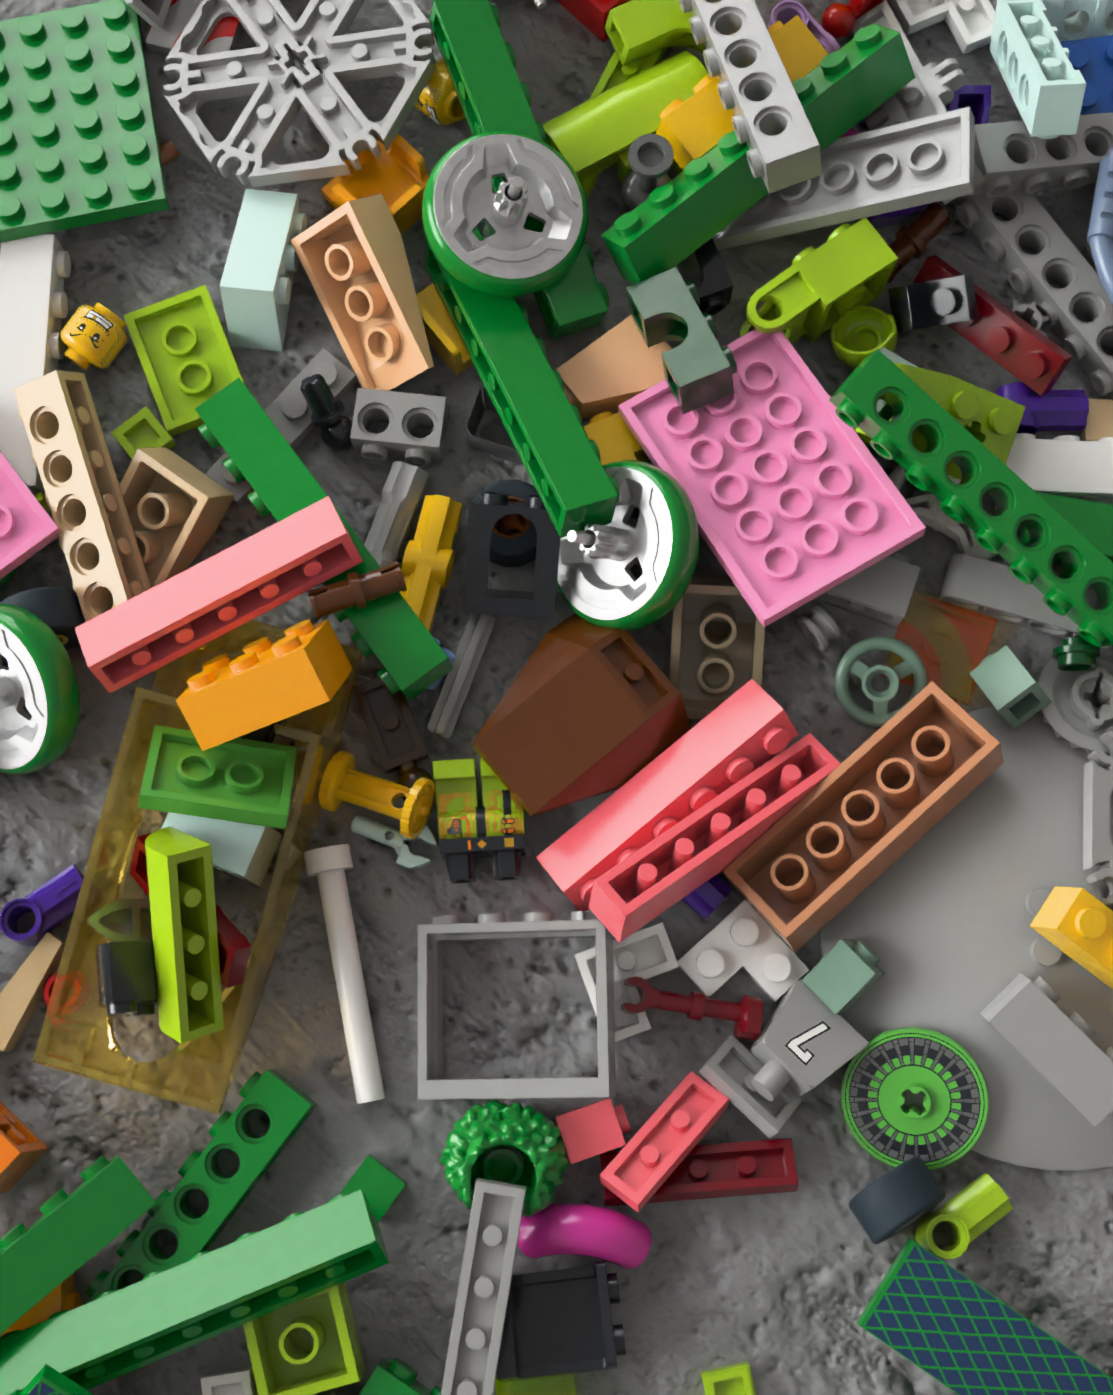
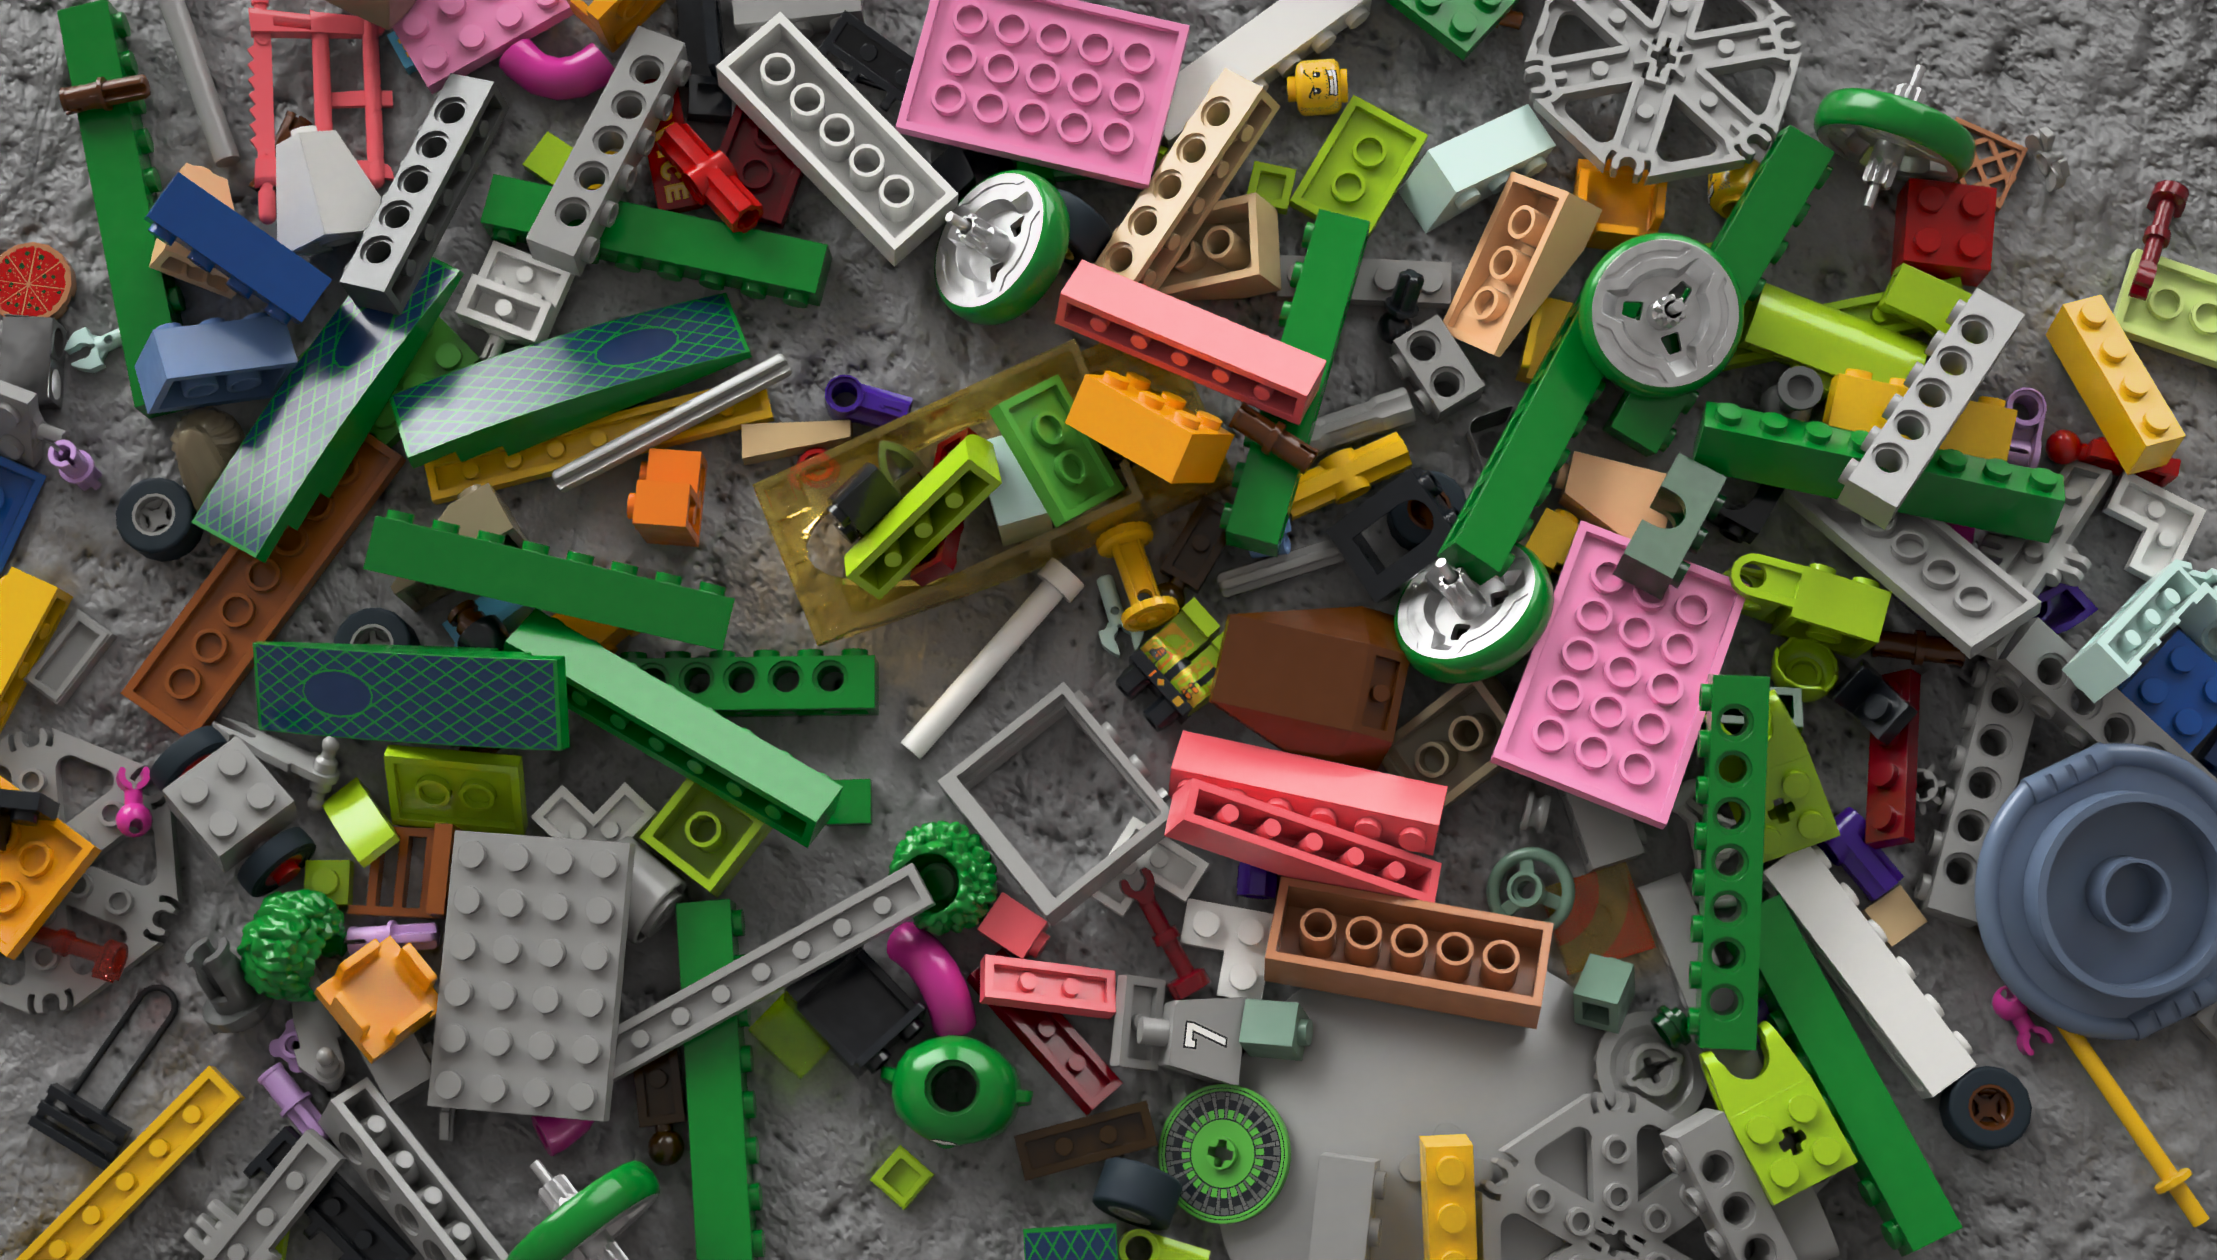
camera: 55 degrees right, 0 degrees up
(704, 1332) = (995, 1099): none -> green piece
(816, 1208) = (1085, 1140): none -> dark brown plate

